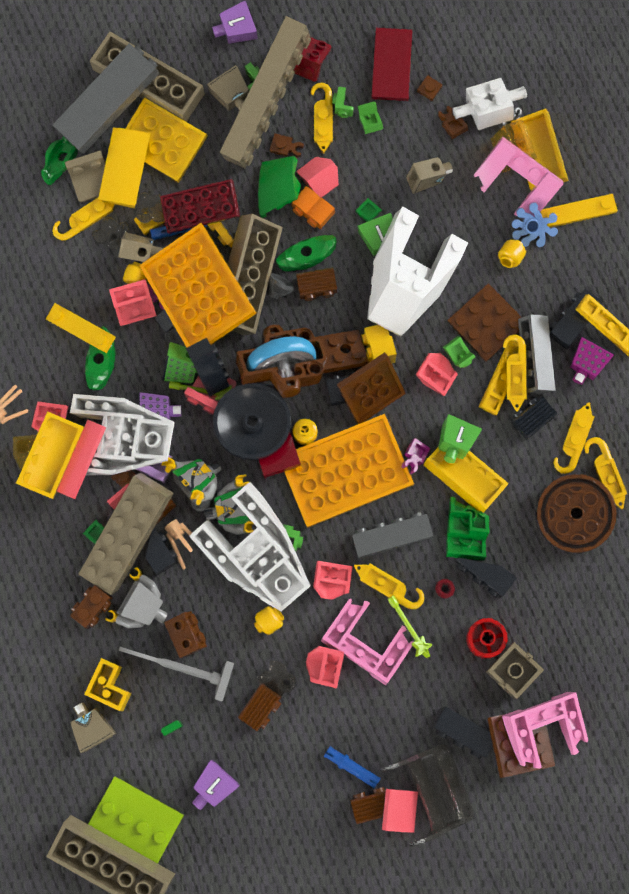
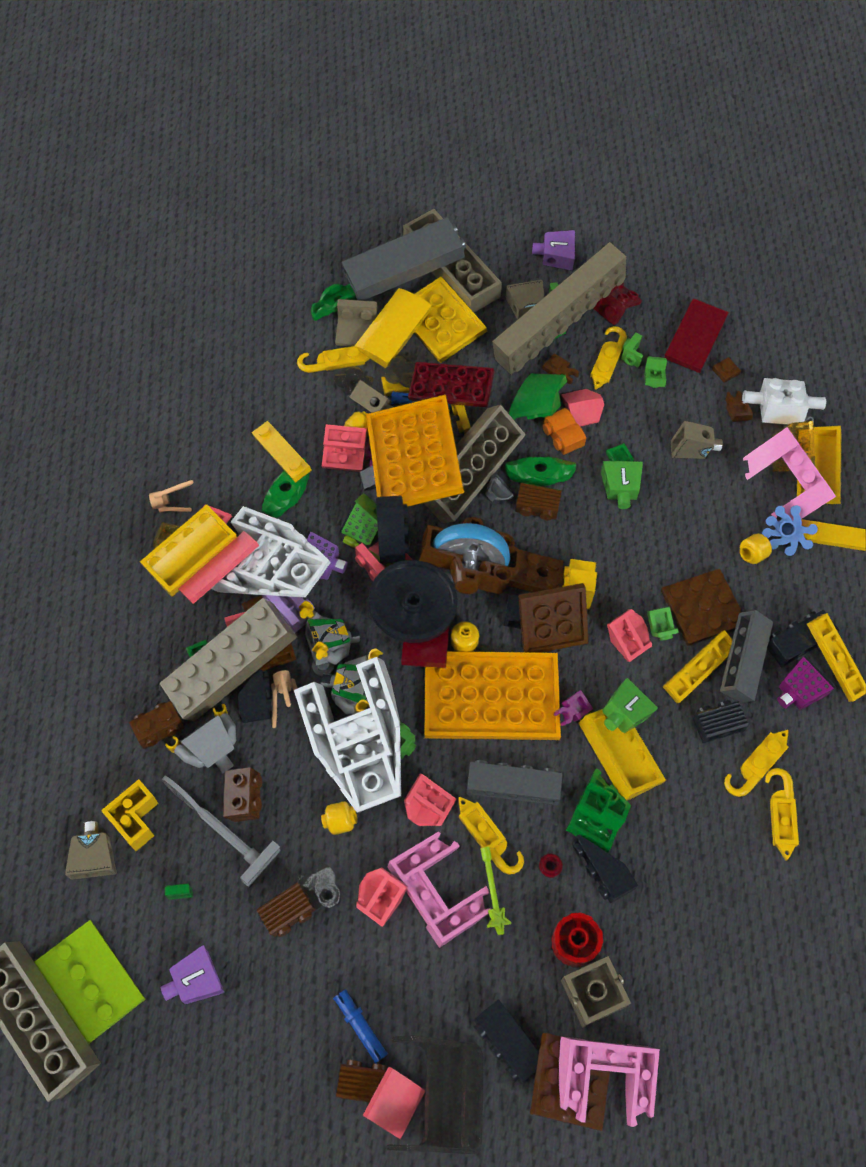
camera: 15 degrees right, 15 degrees down
(403, 286) = (626, 534): white wedge -> none
(516, 373) = (718, 666): yellow plate -> none
(597, 513) = (727, 865): reddish brown brick -> none

